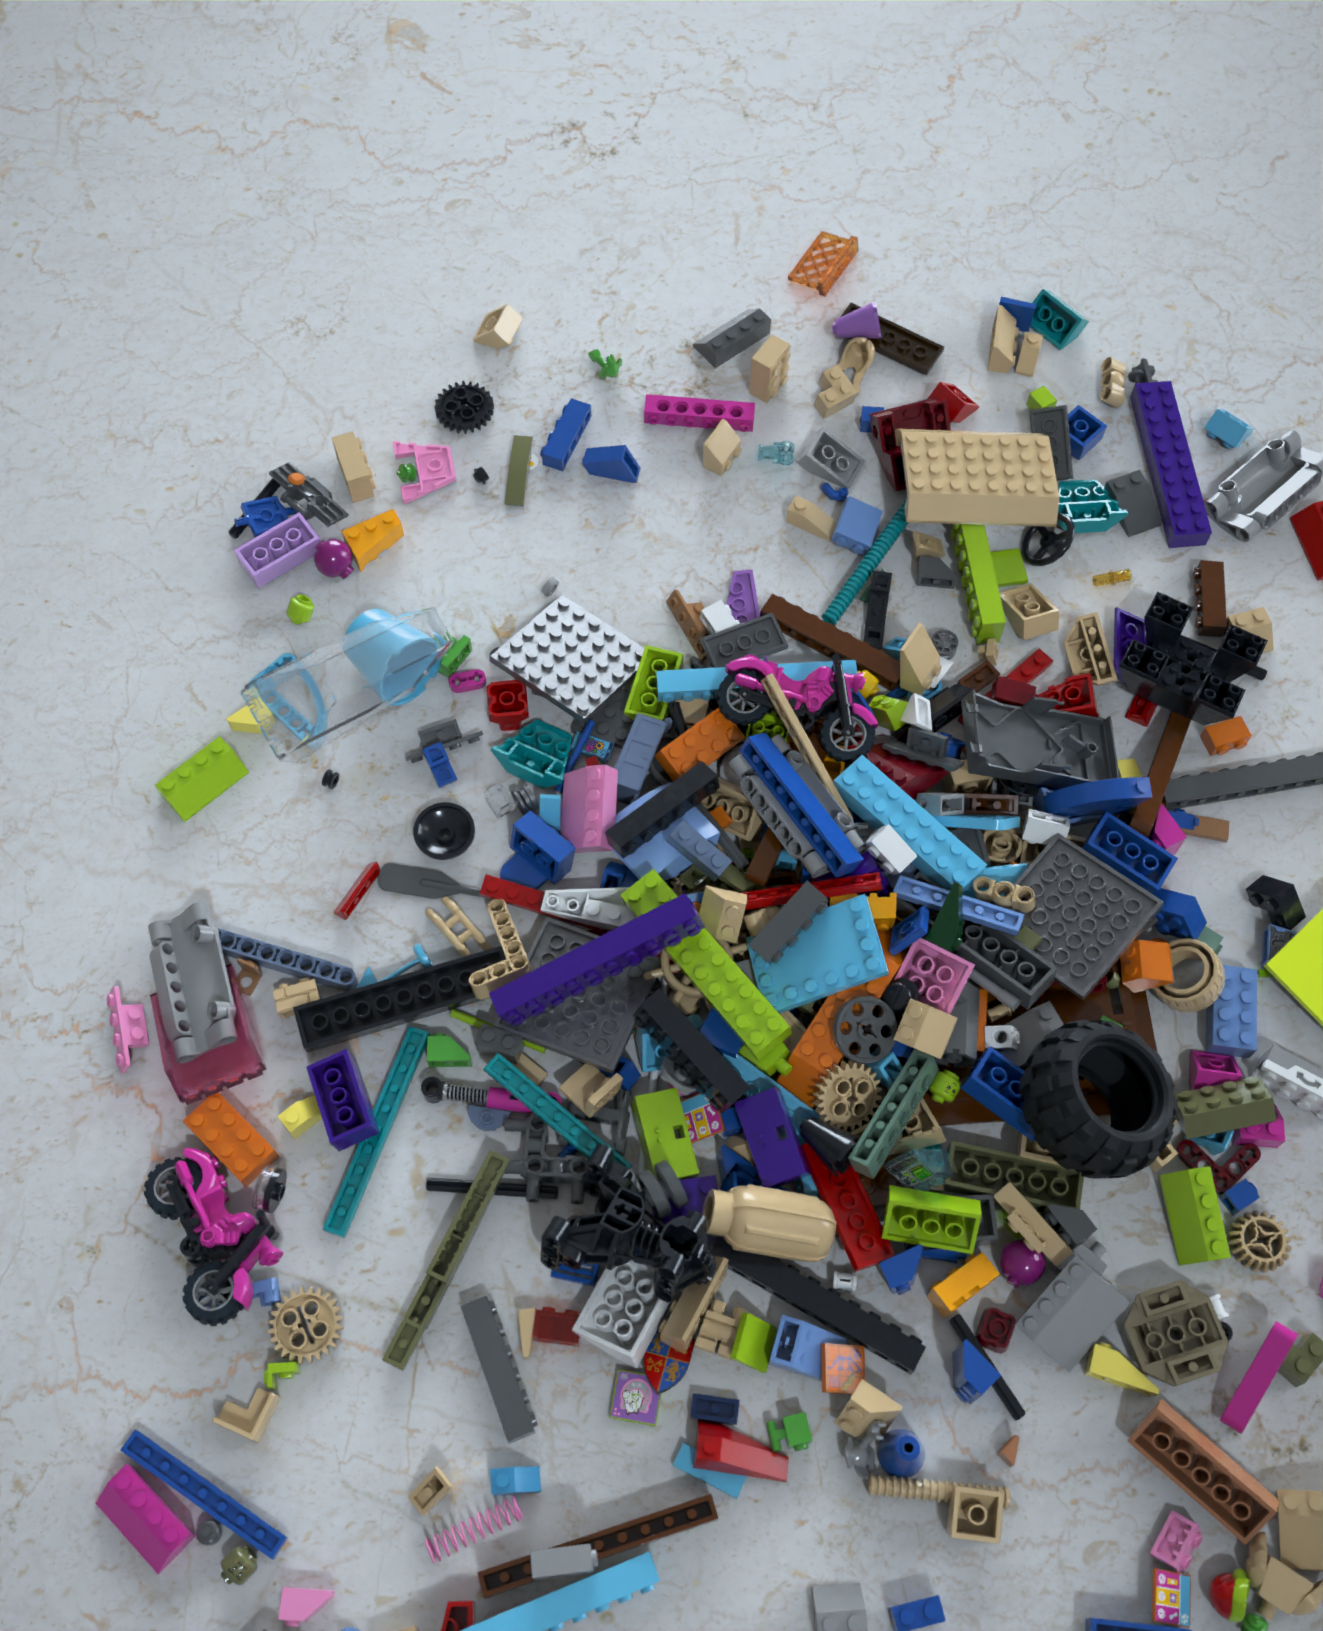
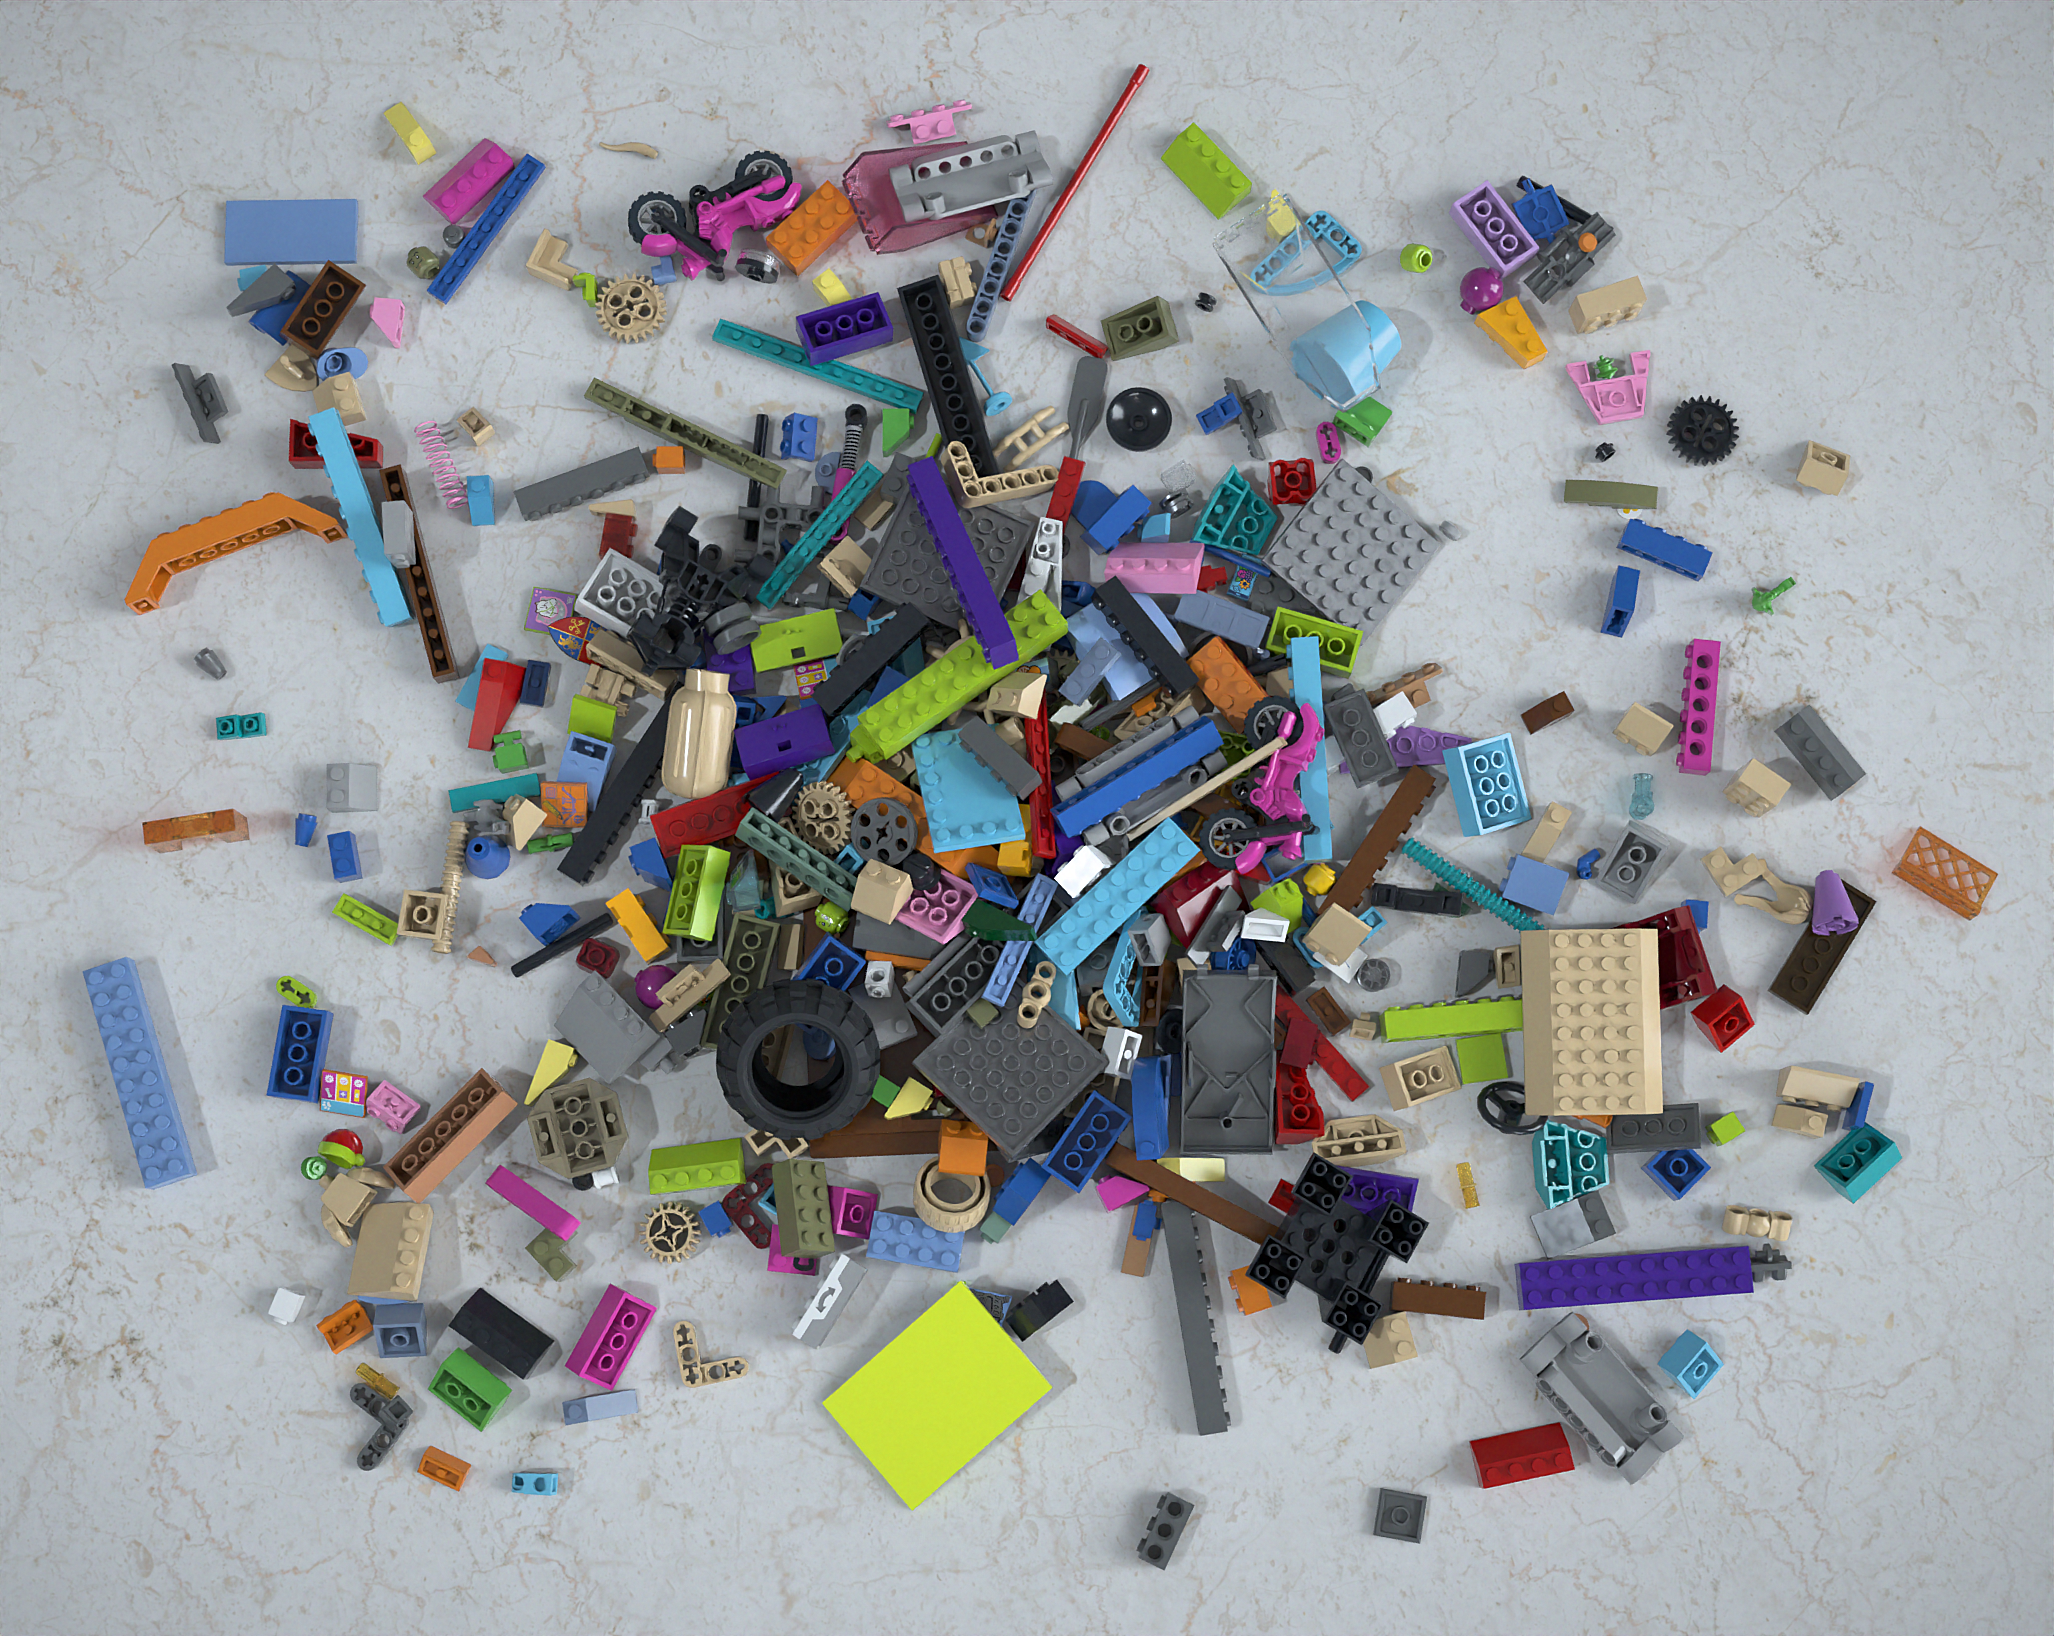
camera: 90 degrees right, 15 degrees up
(80, 1593) = (410, 133): none -> light yellow slope
(106, 843) = (1134, 83): none -> red piece
(124, 1327) = (632, 146): none -> tan animal
(354, 835) = (1140, 329): none -> olive slope
(451, 1146) = (799, 437): none -> blue bracket
(473, 1276) = (669, 460): none -> orange brick
(708, 516) = (1547, 713): none -> reddish brown slope
(775, 559) = (1486, 785): none -> medium azure slope
(832, 1449) = (499, 791): none -> teal tile
(881, 1378) = (550, 843): none -> bright green pin
(968, 1133) = (790, 947): none -> tan tile
(981, 1584) = (366, 919): none -> lime plate
(1111, 1006) = (910, 1100): none -> light yellow slope

